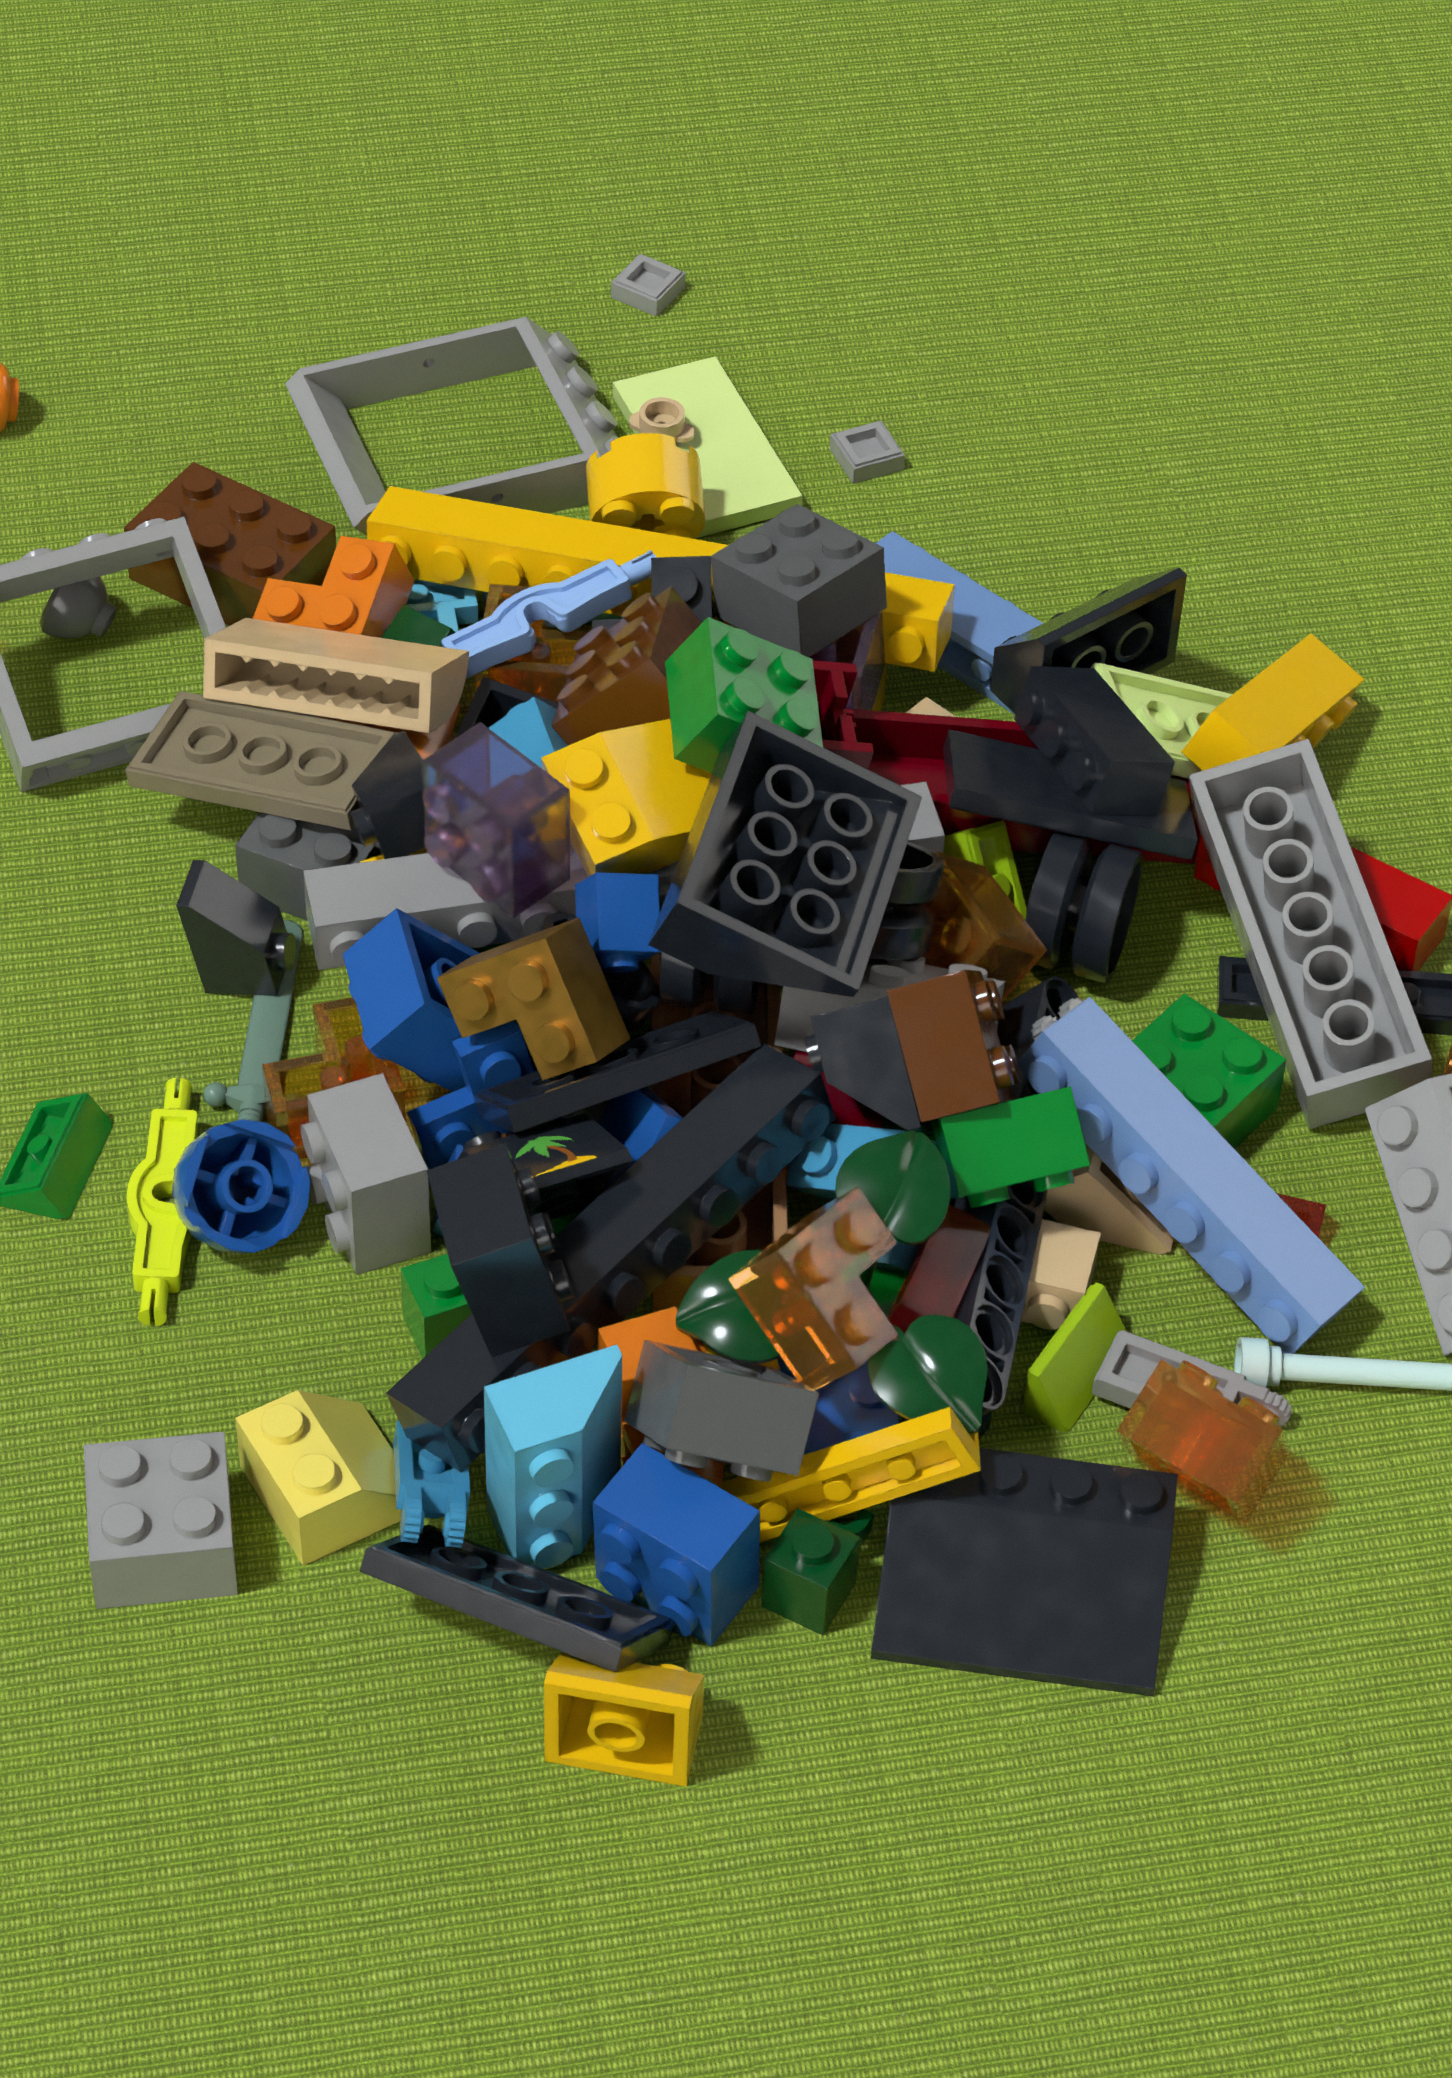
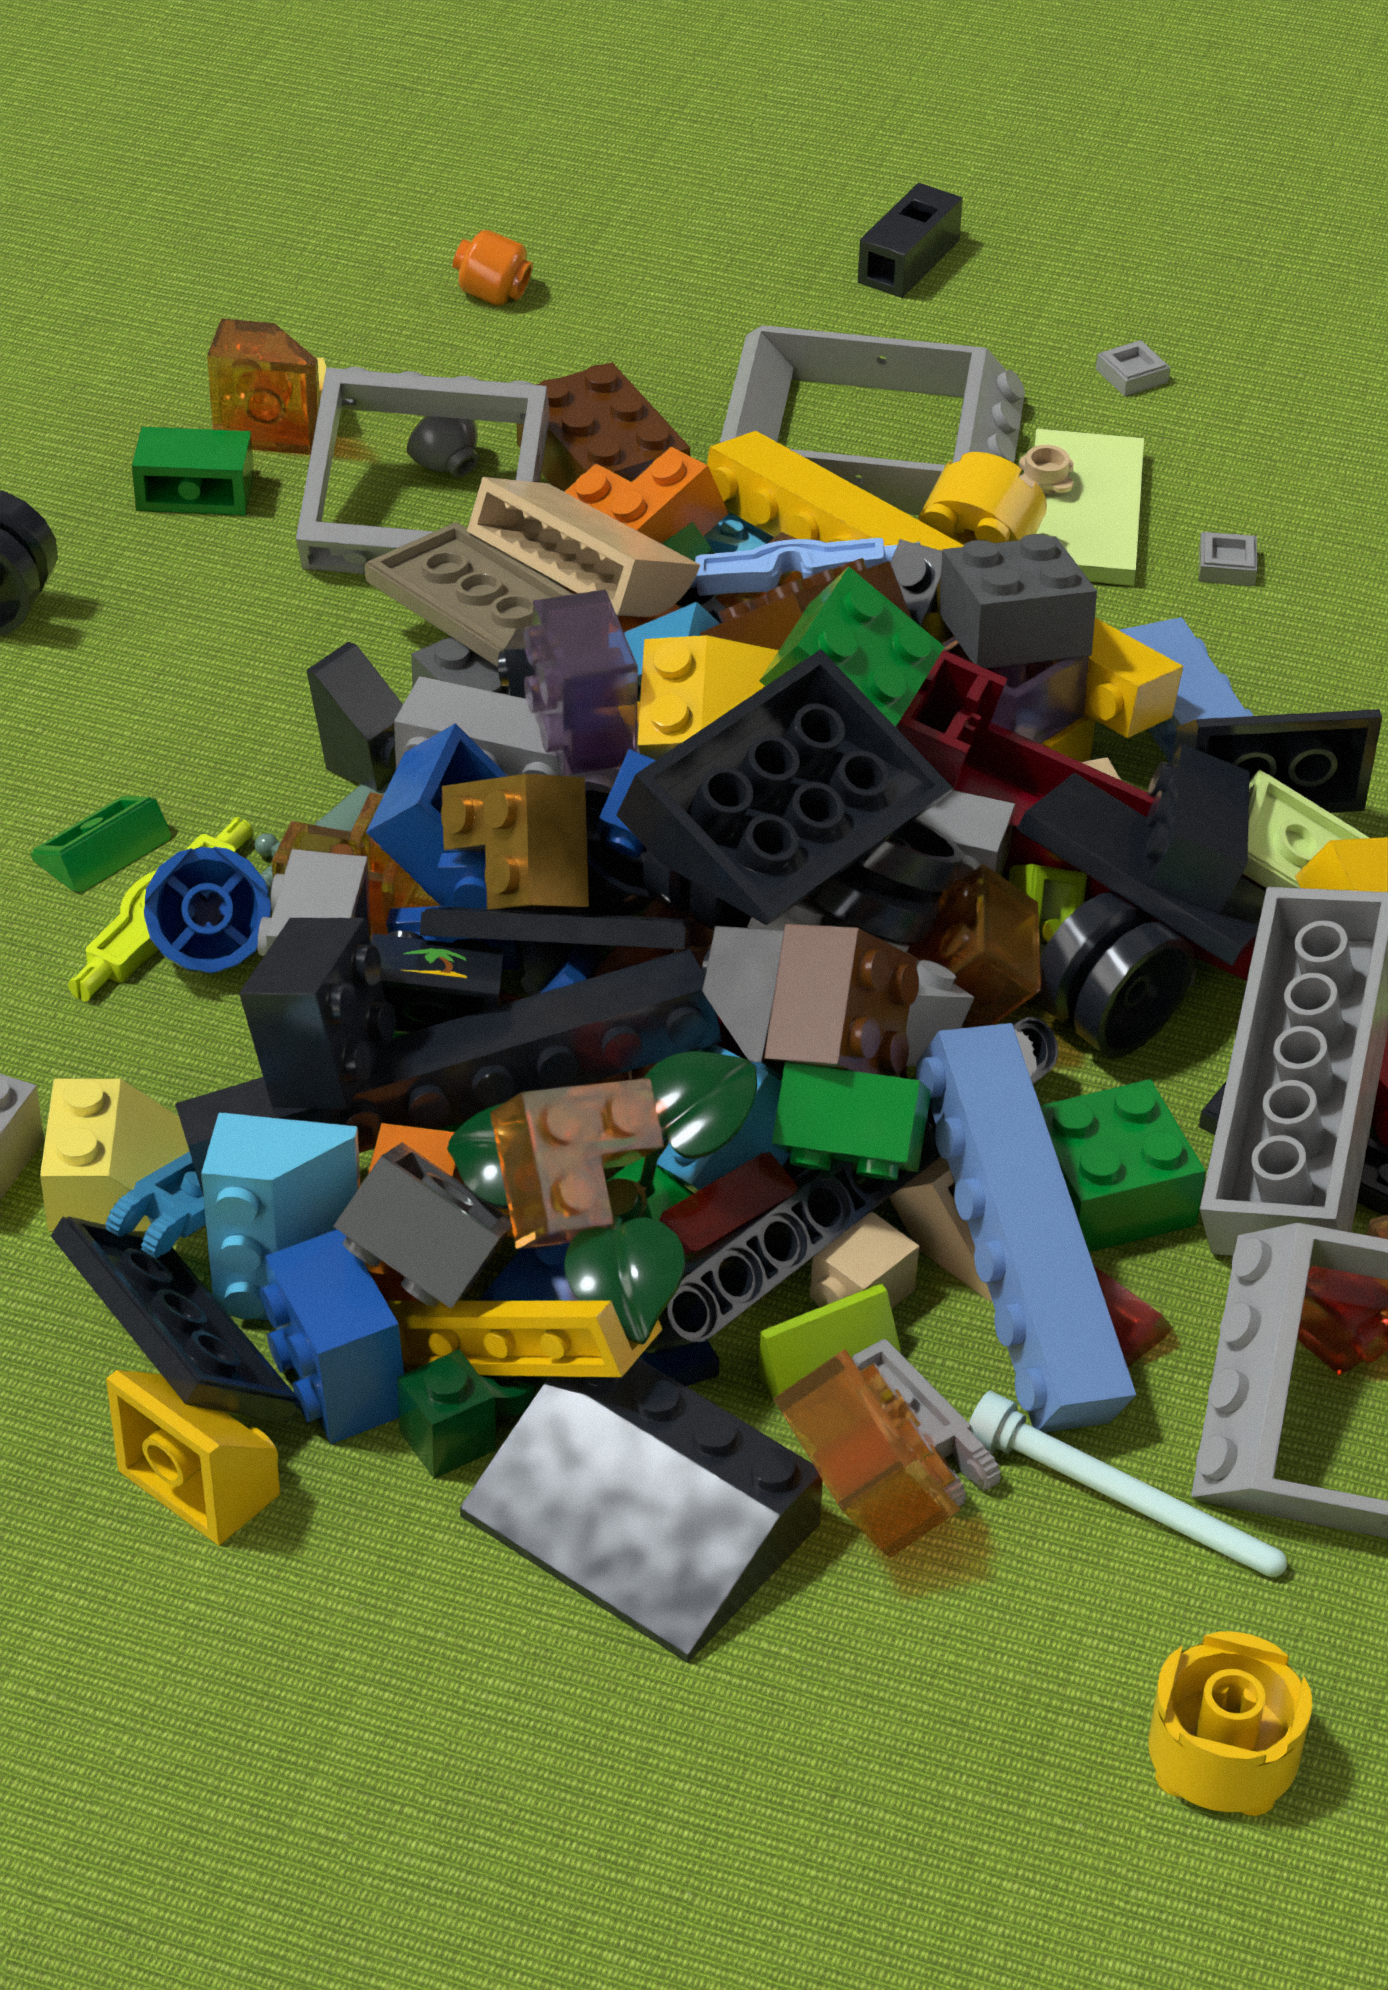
camera: 30 degrees right, 5 degrees down
(357, 222) = (909, 240): none -> black brick

